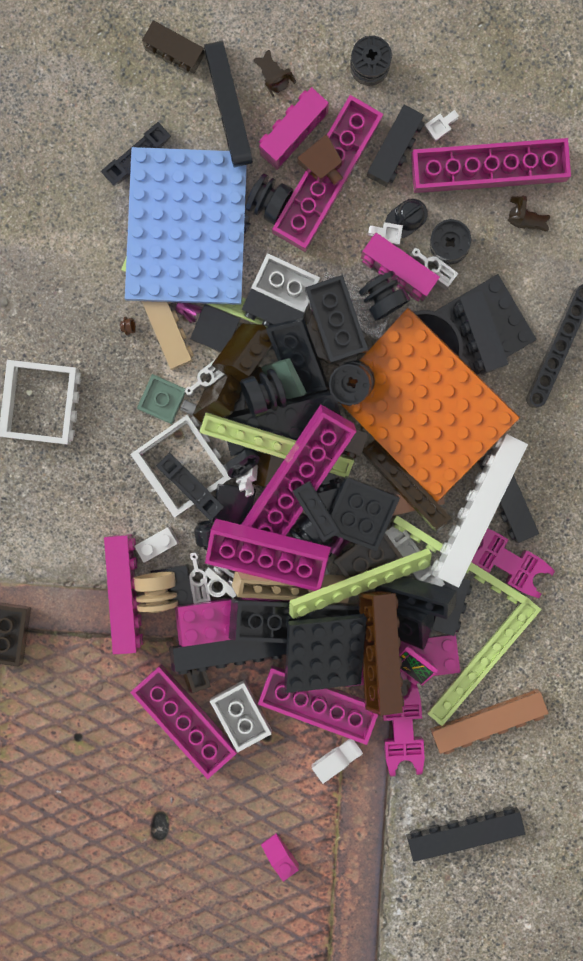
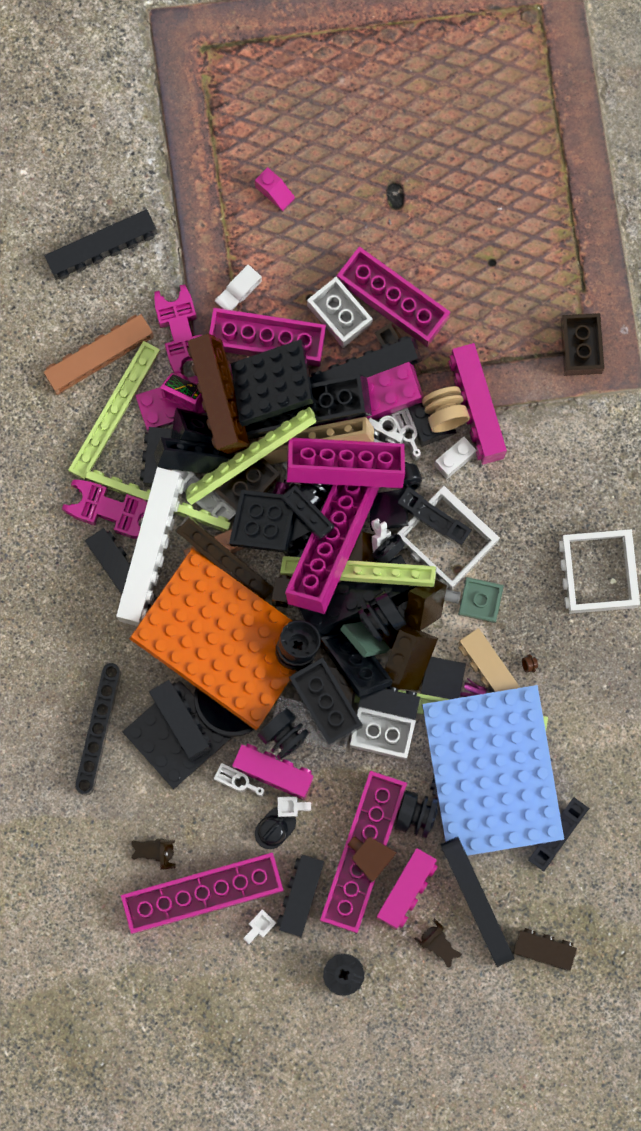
camera: 170 degrees right, 10 degrees down
(208, 370) = (442, 634): white piece -> none
(450, 230) = (227, 796): black wheel -> none

